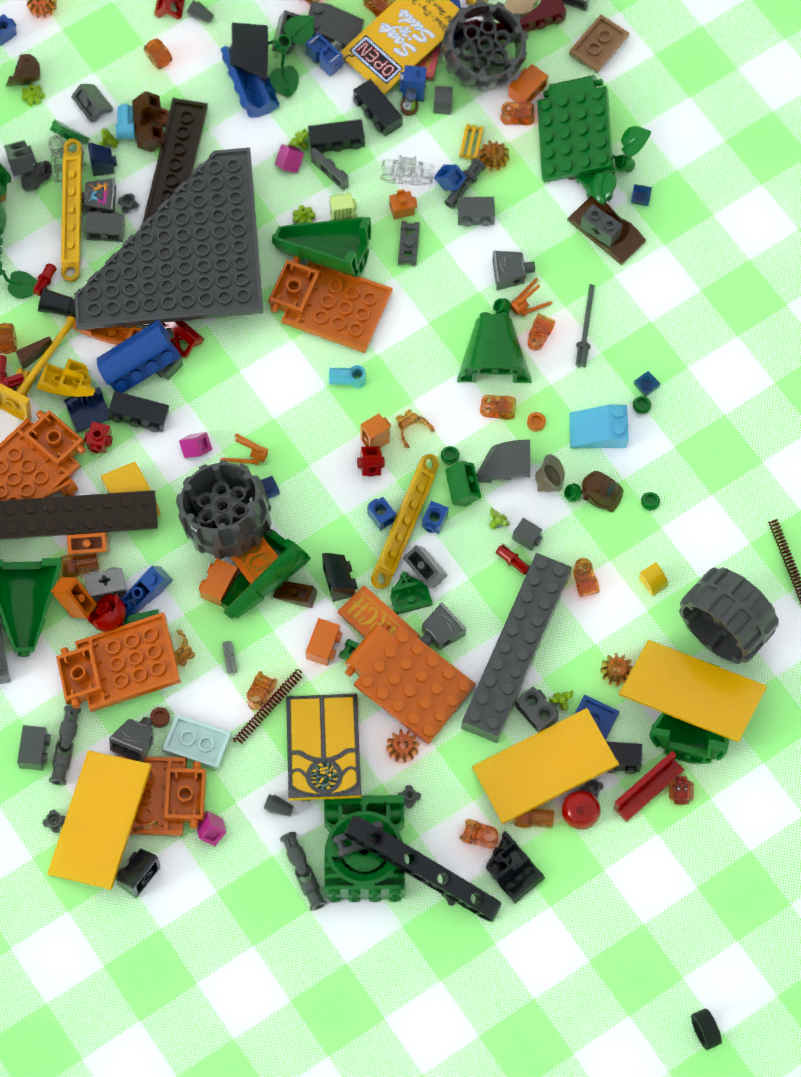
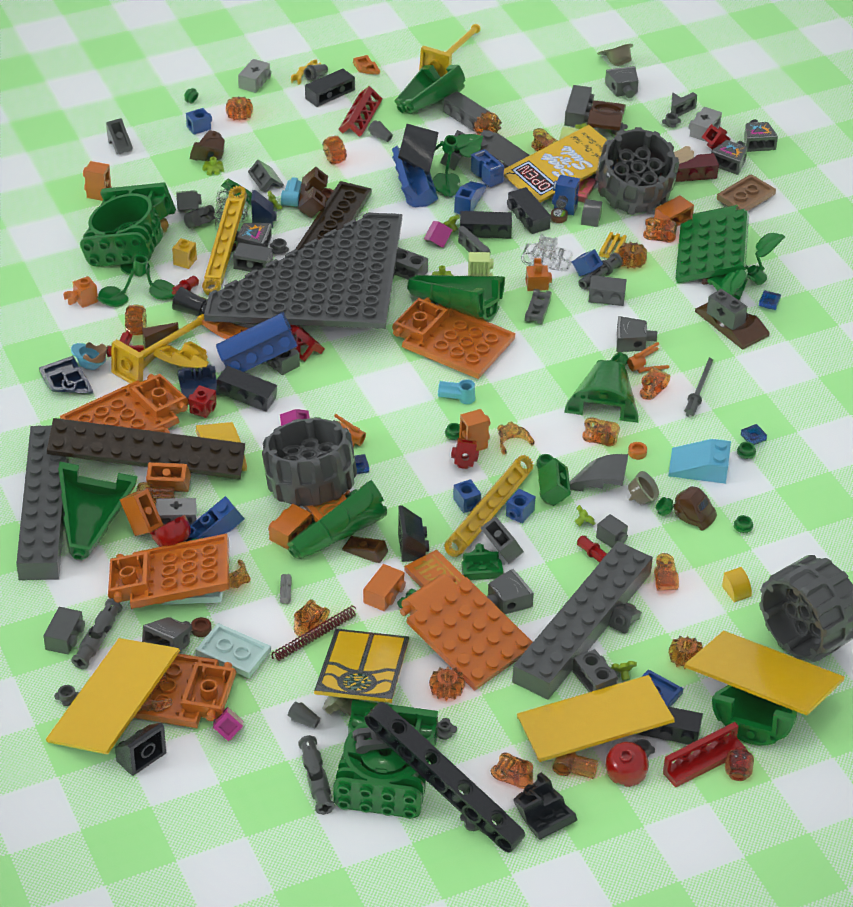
camera: 10 degrees right, 25 degrees down
(33, 233) = (184, 253): none -> yellow brick
(264, 212) = (410, 264): none -> dark grey brick
(312, 97) = (468, 196): none -> blue slope
(352, 430) = (452, 431): none -> green plate
(554, 636) = (623, 617): none -> dark grey bracket

